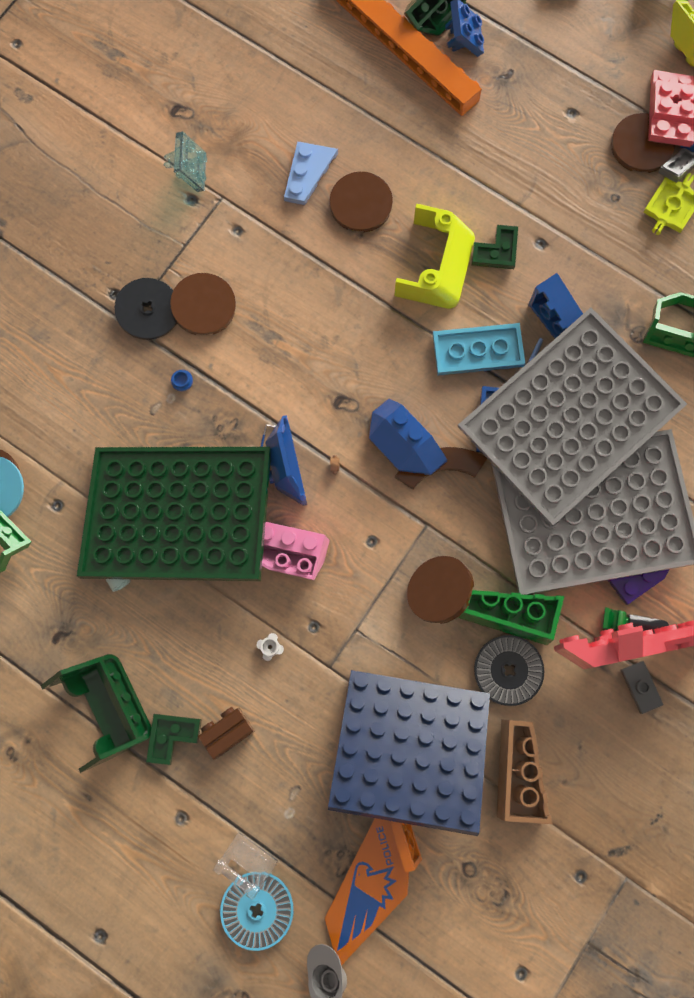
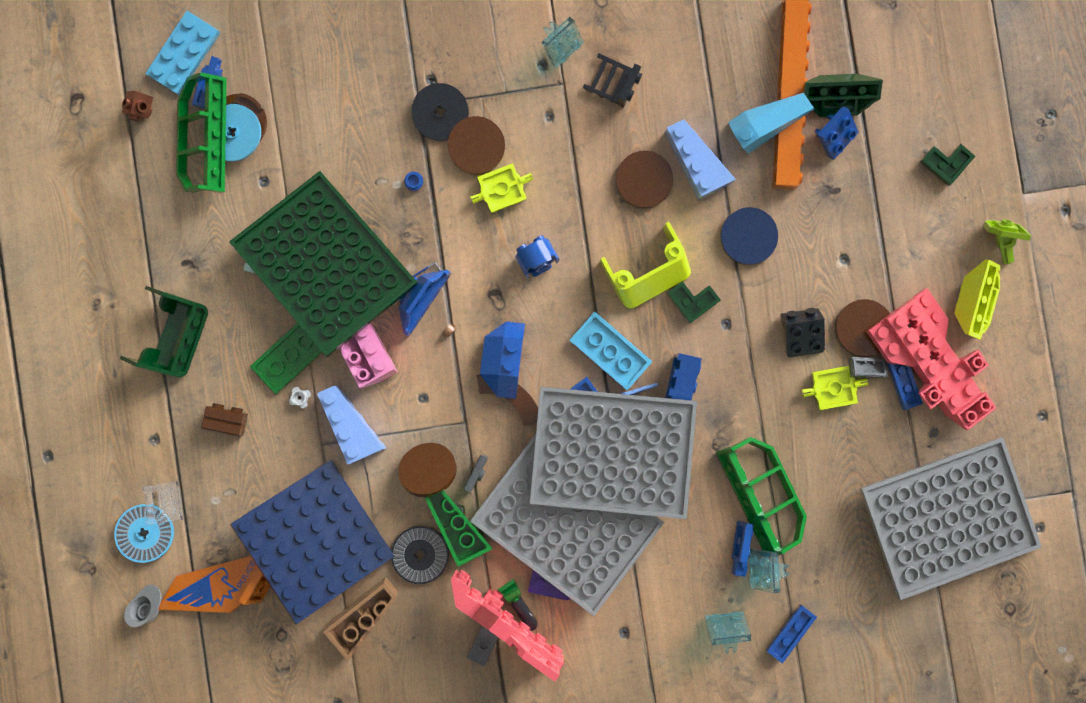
camera: 45 degrees right, 10 degrees up
(166, 731) = (193, 384): dark green plate -> none
(225, 623) = (286, 359): none -> green tile
(258, 315) = (502, 188): none -> neon yellow plate
(272, 149) = (625, 85): none -> black plate
(306, 170) = (633, 122): light blue wing -> none
(340, 625) = (349, 426): none -> light blue wedge
(343, 335) = (536, 257): none -> blue brick
(385, 147) = (698, 162): none -> light blue wedge
(405, 73) = (764, 122): none -> medium azure wedge
(481, 551) = (477, 473): none -> dark grey plate
(484, 163) = (749, 236): none -> dark blue tile
(605, 186) = (804, 332): none -> black bracket

